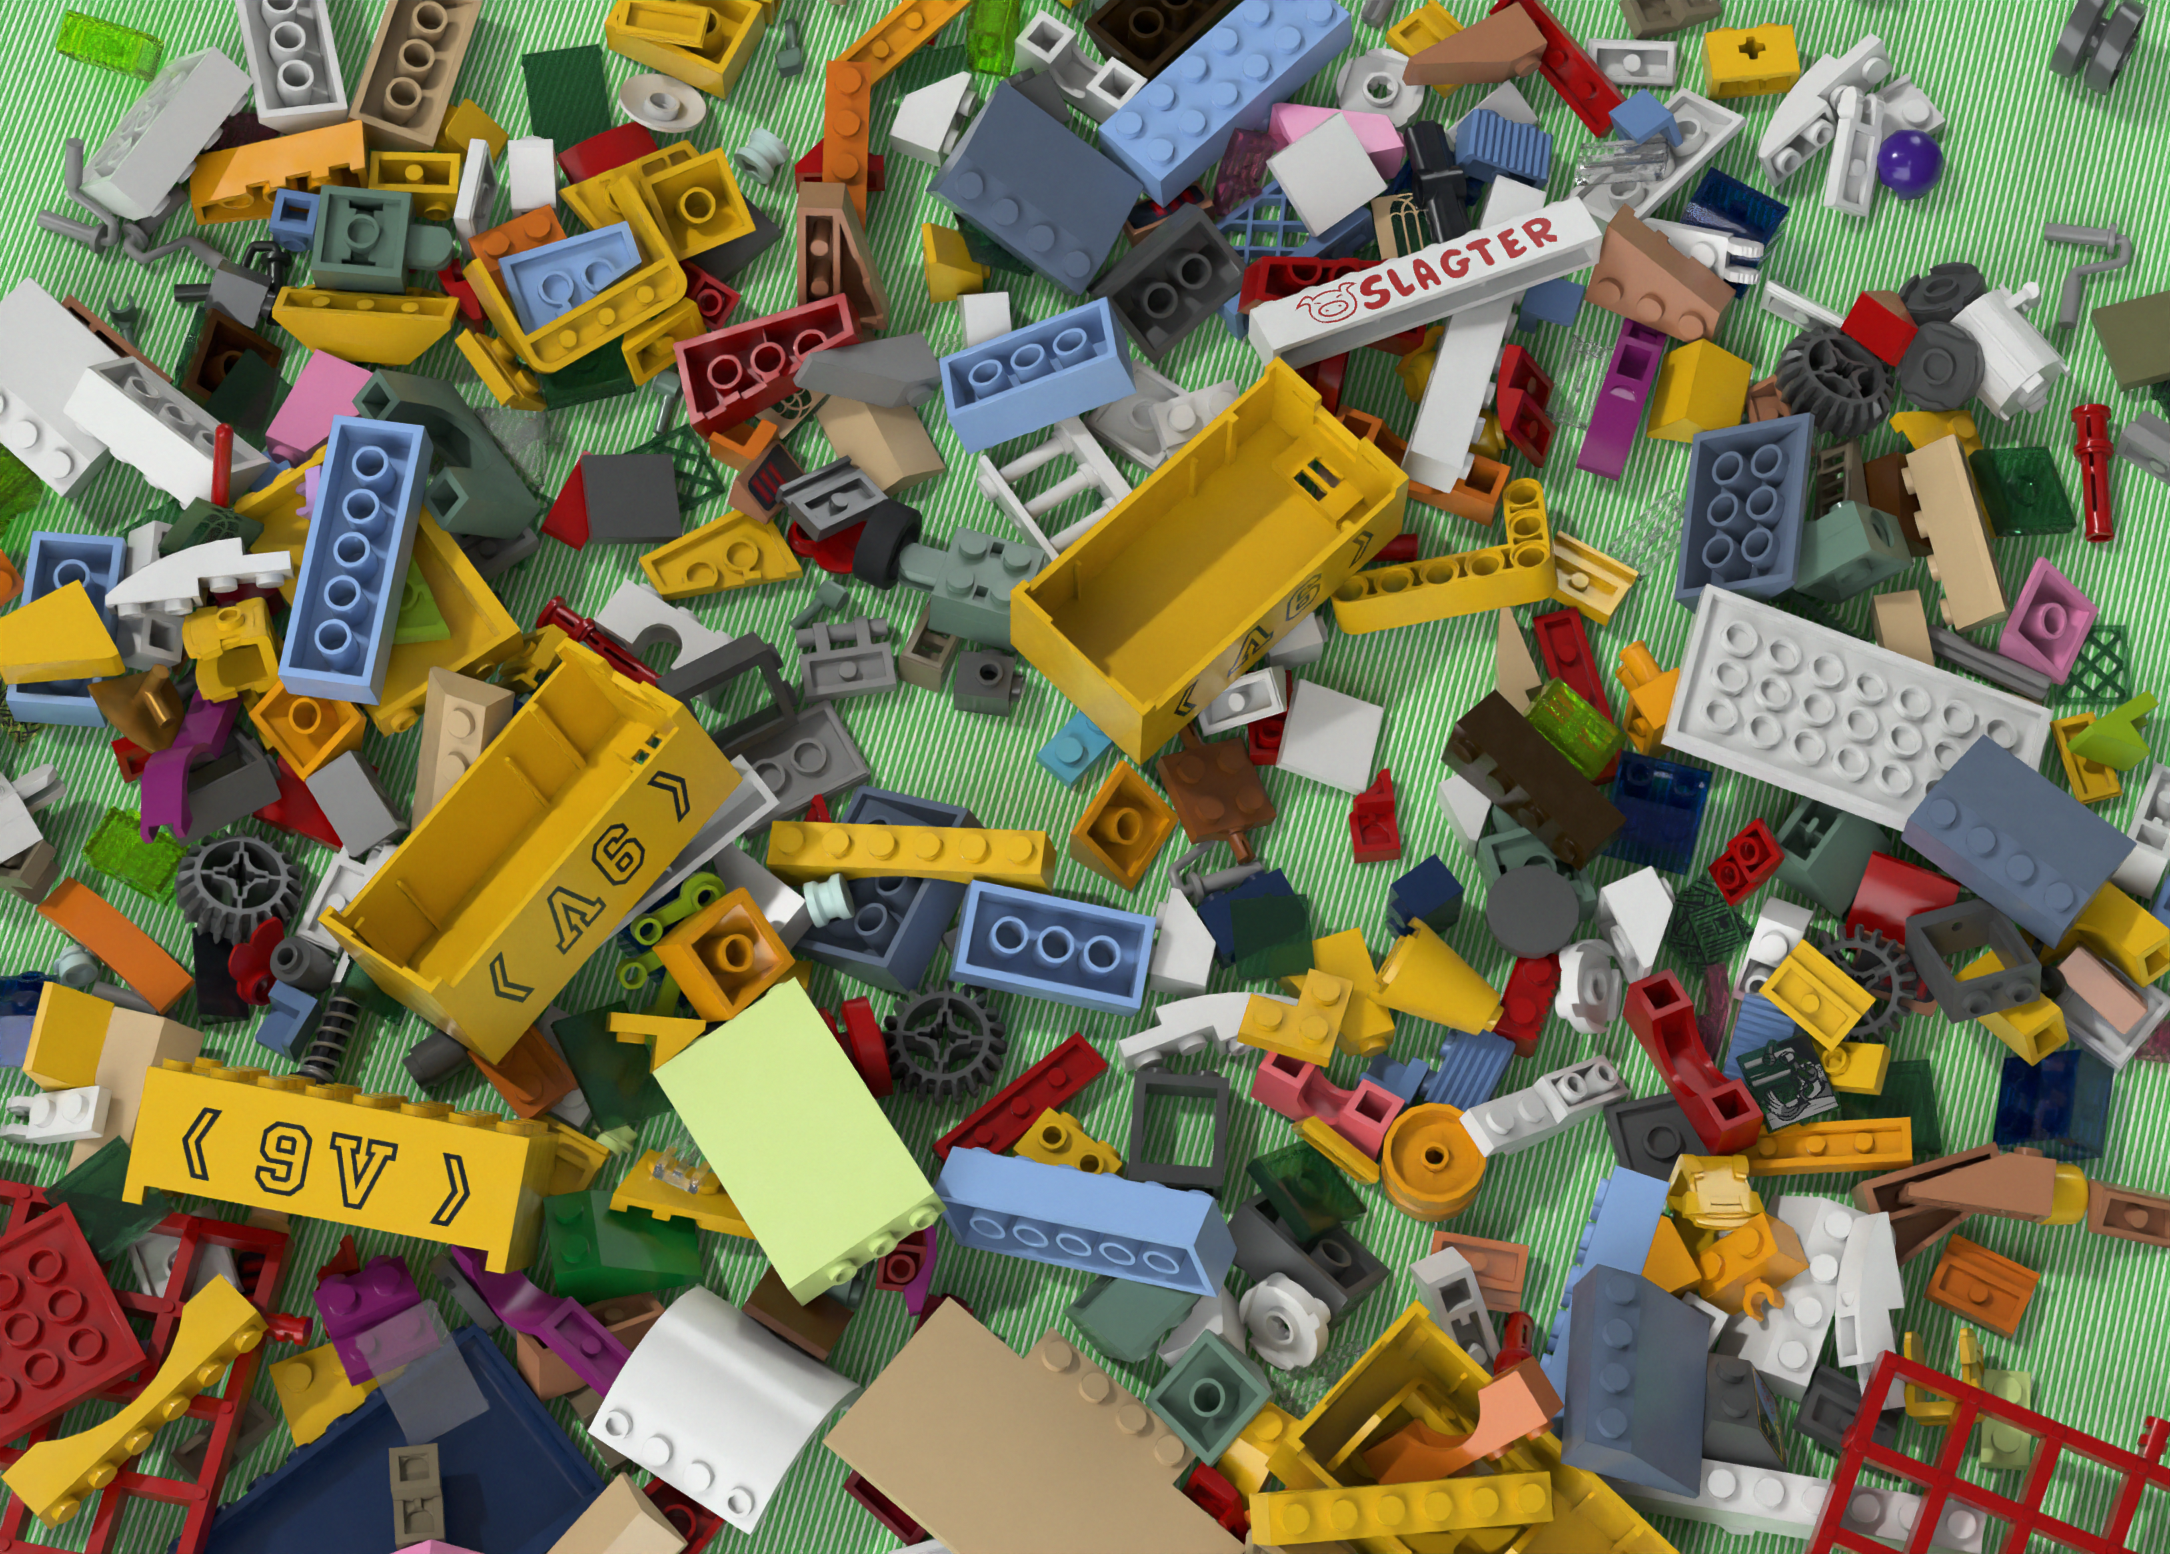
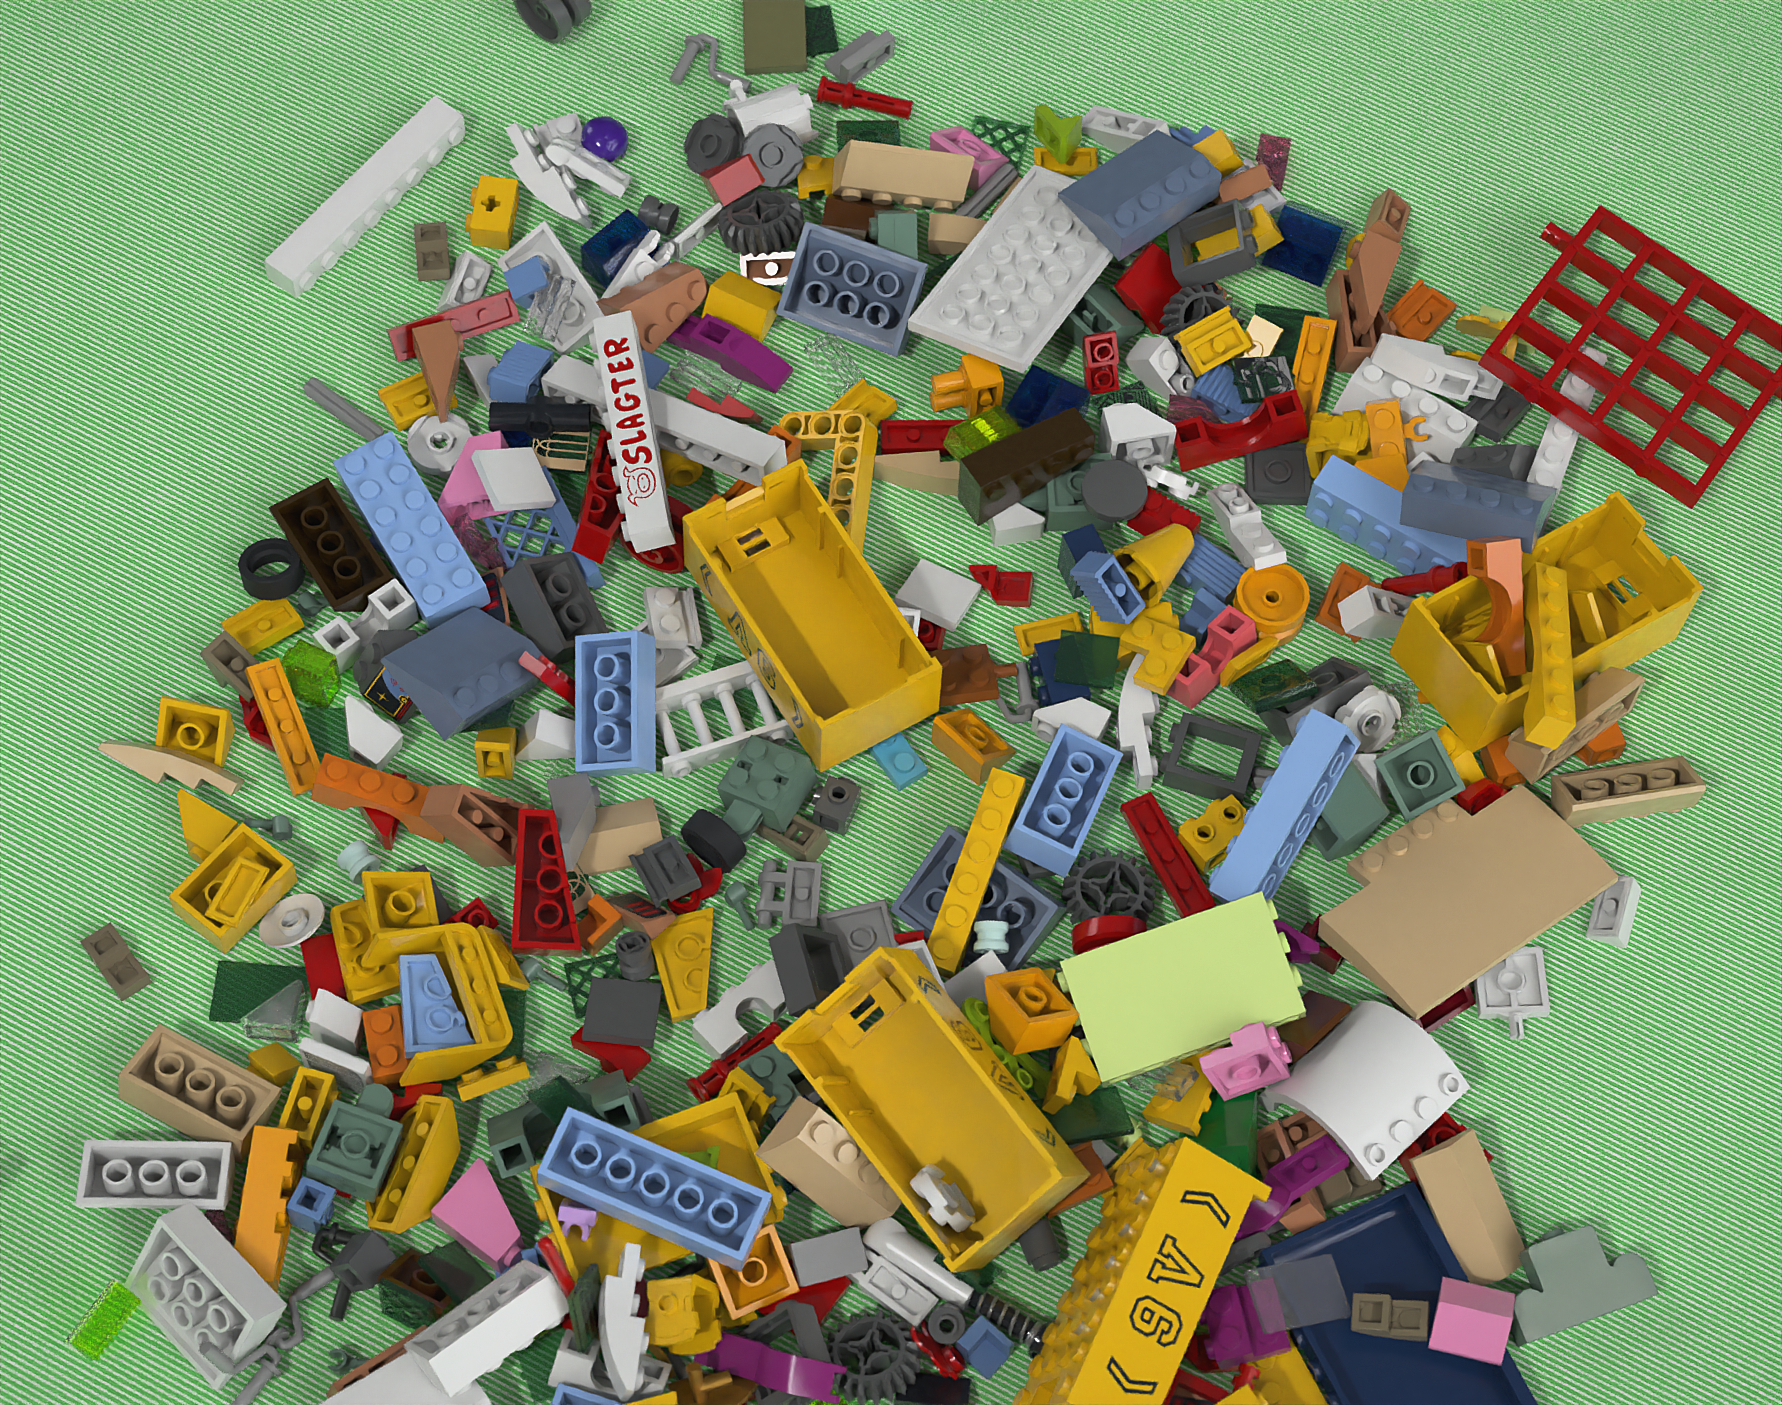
camera: 80 degrees left, 5 degrees down
(415, 890) = (947, 1201): none -> white plate
(451, 439) = (556, 1096): none -> clear green piece
(534, 117) = (279, 1016): none -> clear slope
(706, 492) = (635, 955): none -> dark grey wheel
(715, 1240) = (1250, 1063): none -> bright pink plate
(1048, 281) = (557, 681): none -> red hinge
(1327, 905) = (1045, 630): none -> yellow tile
(1365, 926) = (1107, 587): none -> medium blue brick
(1813, 258) = (658, 215): none -> dark grey wheel

